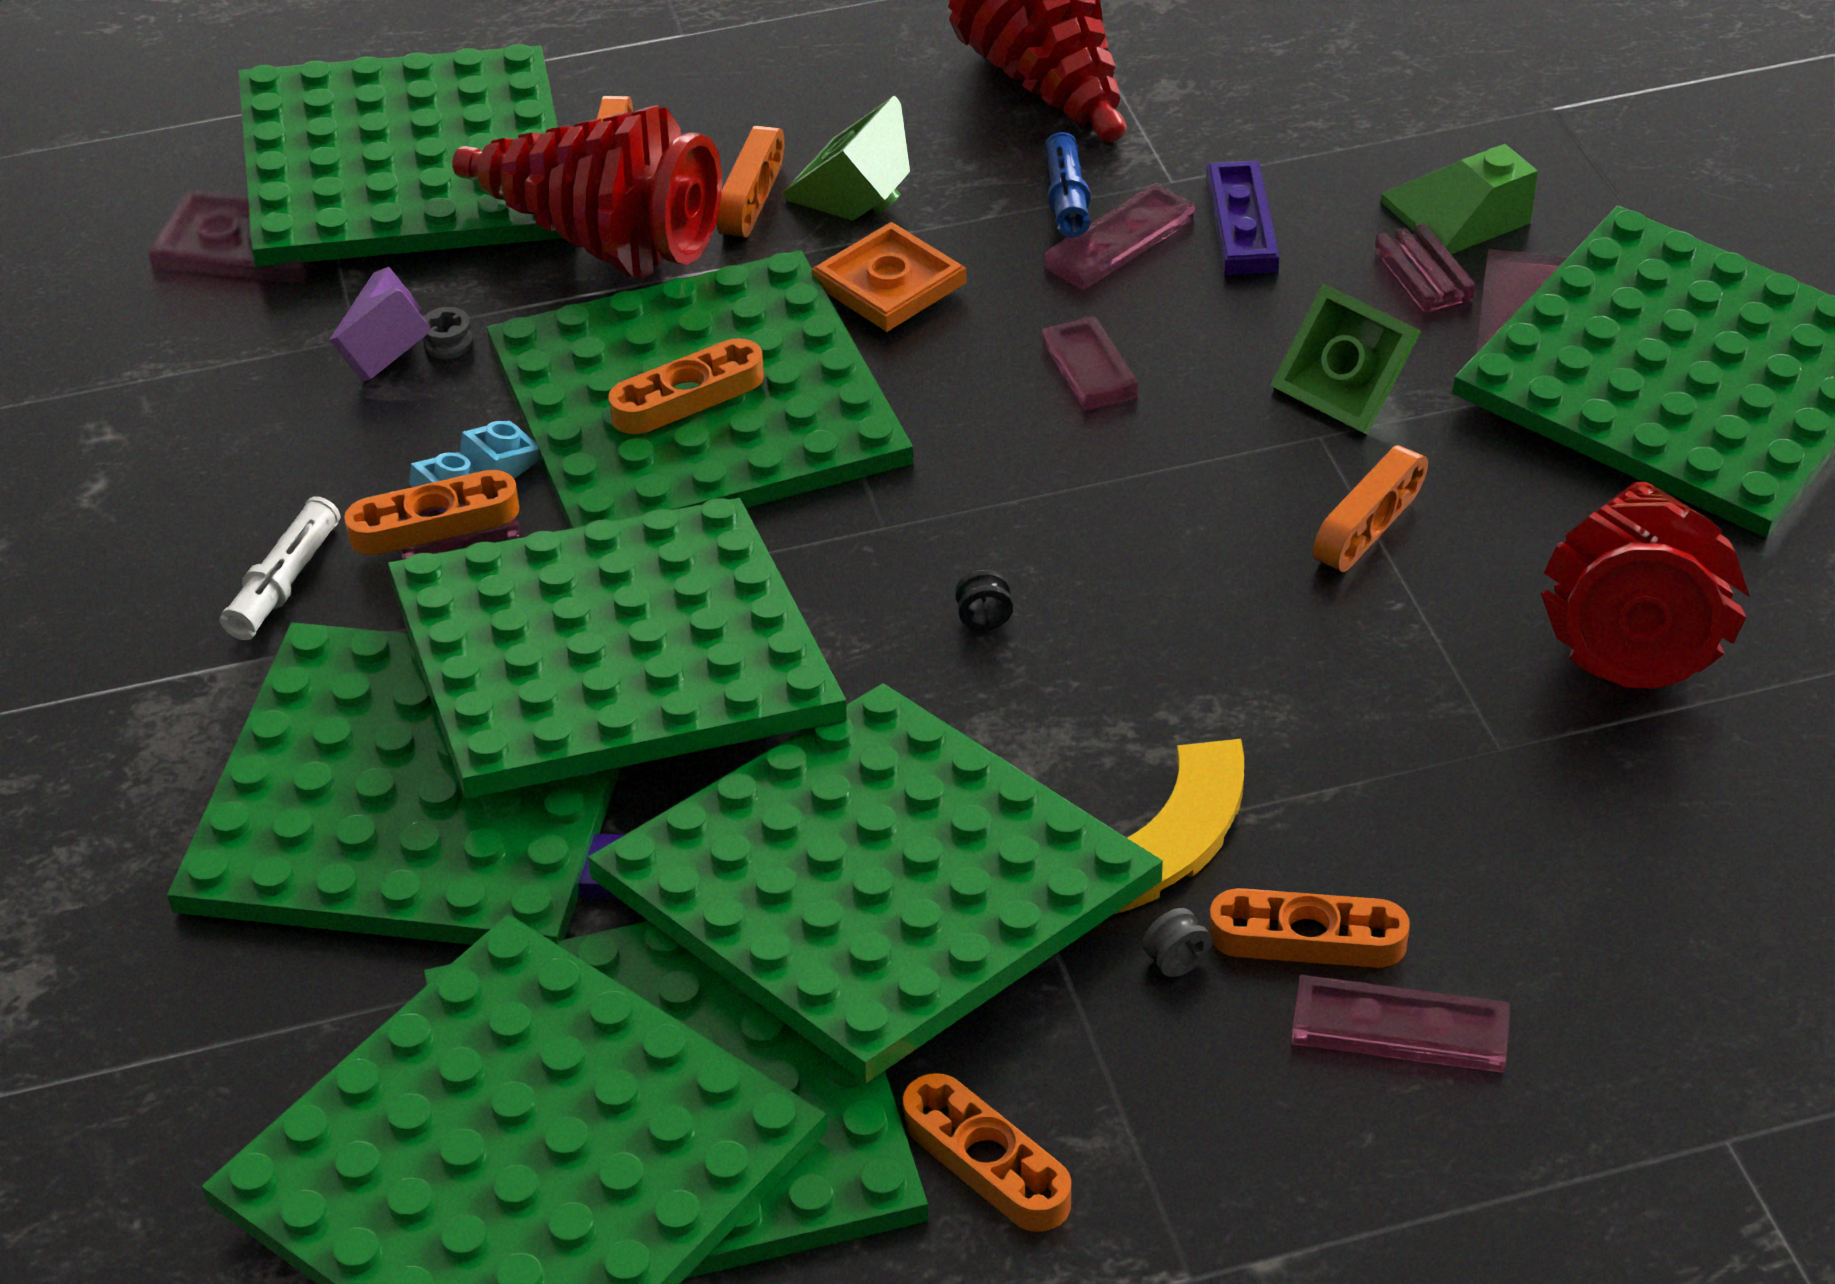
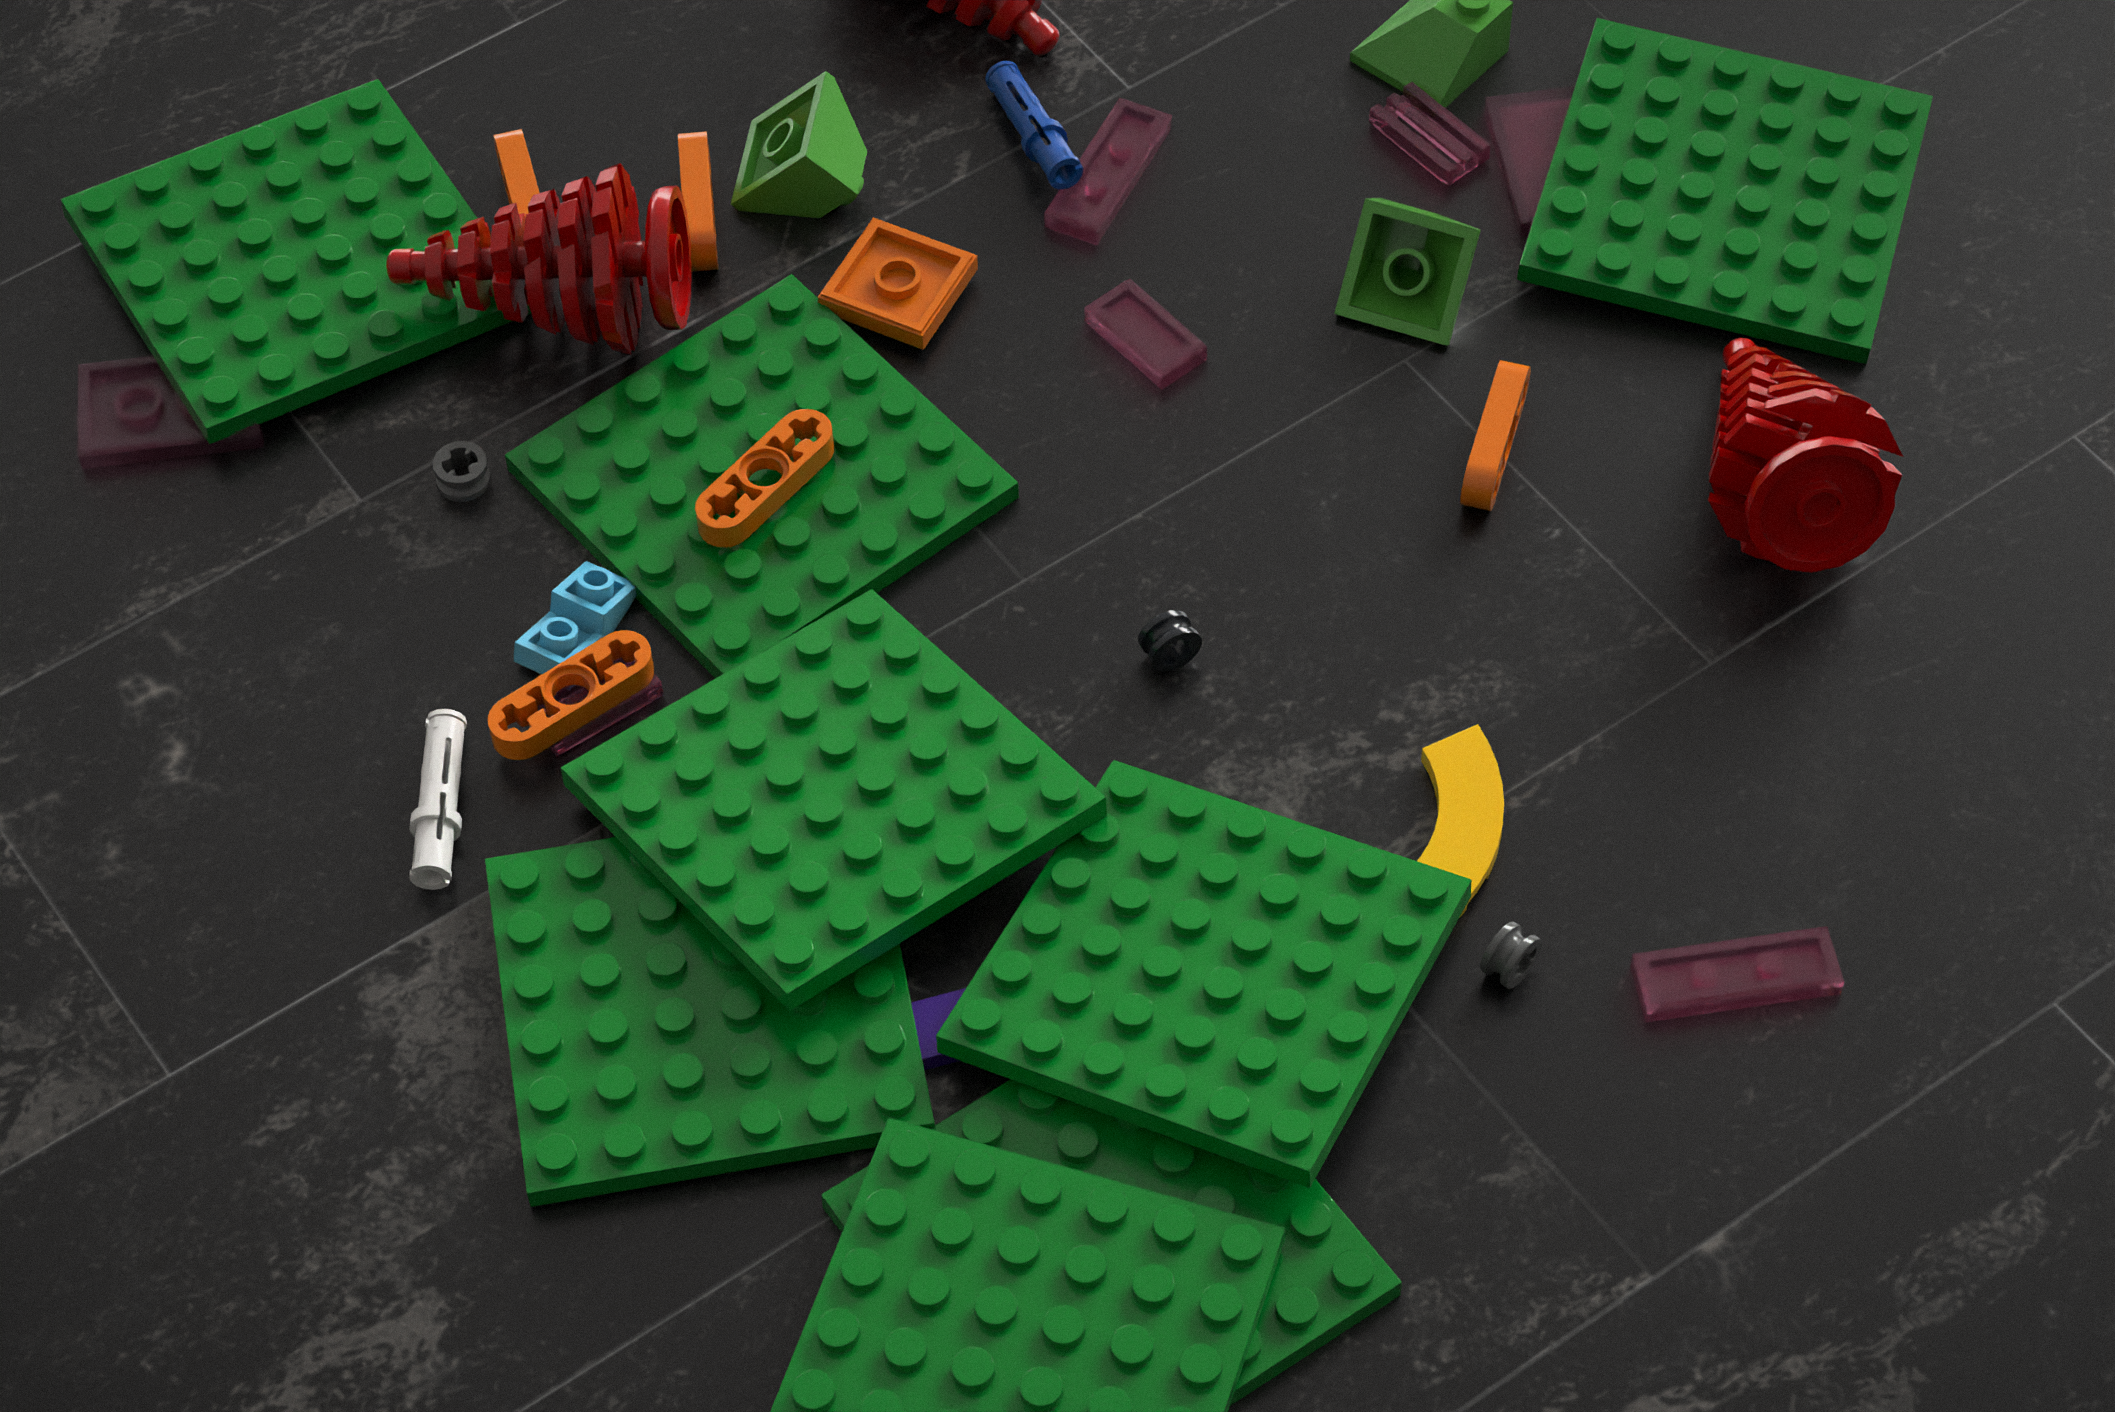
camera: 20 degrees left, 10 degrees up
(379, 325) = (395, 483): medium lavender slope -> none
(992, 1180) = (1438, 1240): orange beam -> none
(1242, 218) = (1222, 117): dark purple tile -> none
(1330, 910) = (1632, 880): orange beam -> none

